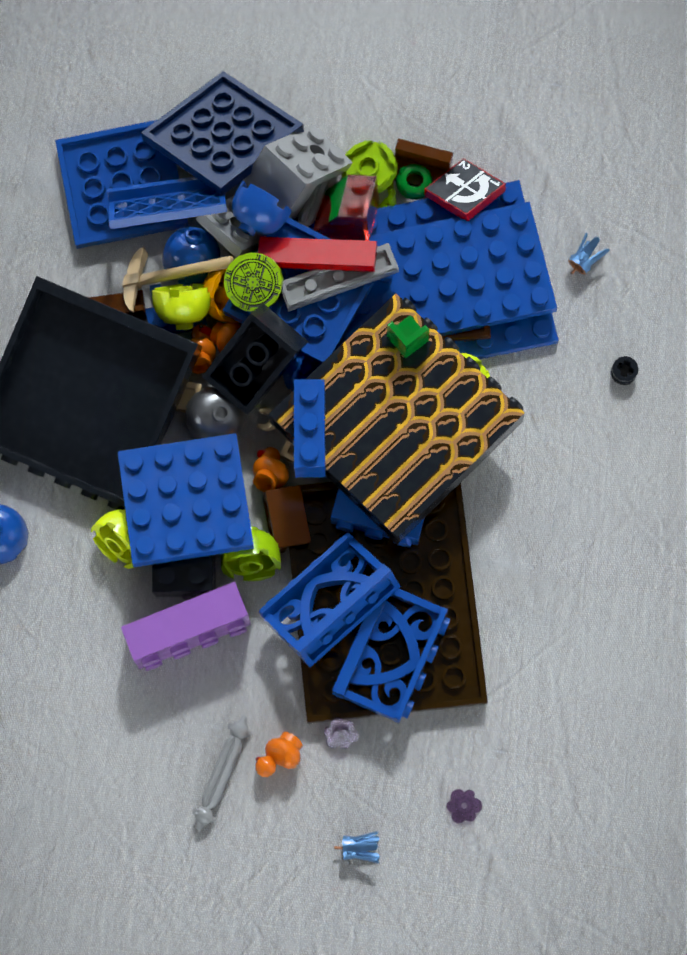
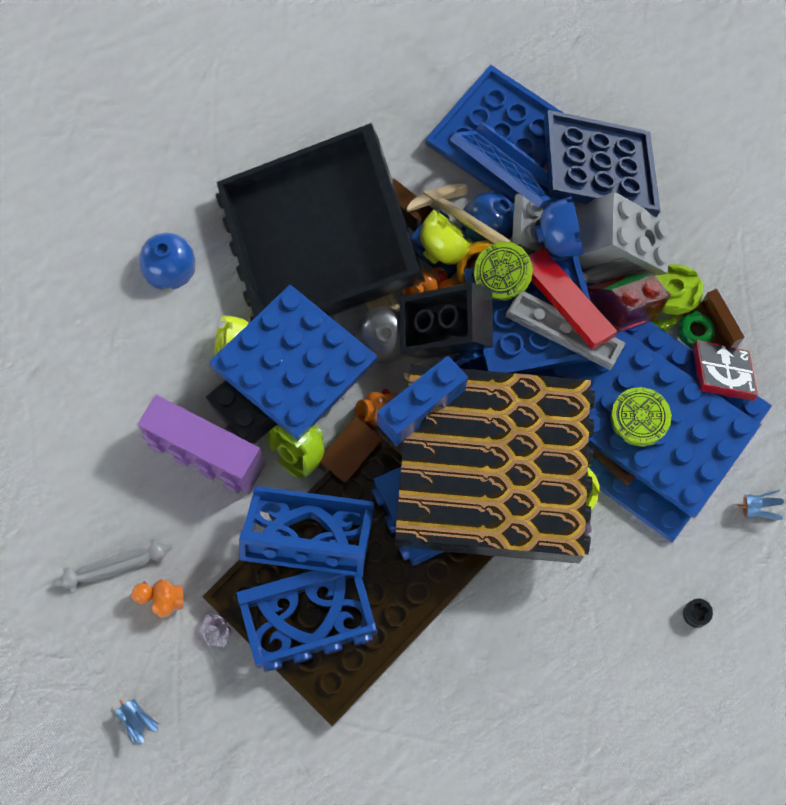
camera: 50 degrees right, 5 degrees down
(407, 335) = (563, 414): green panel -> none
(451, 281) = (640, 416): none -> lime tile
(459, 814) = (242, 784): clear purple plant -> none

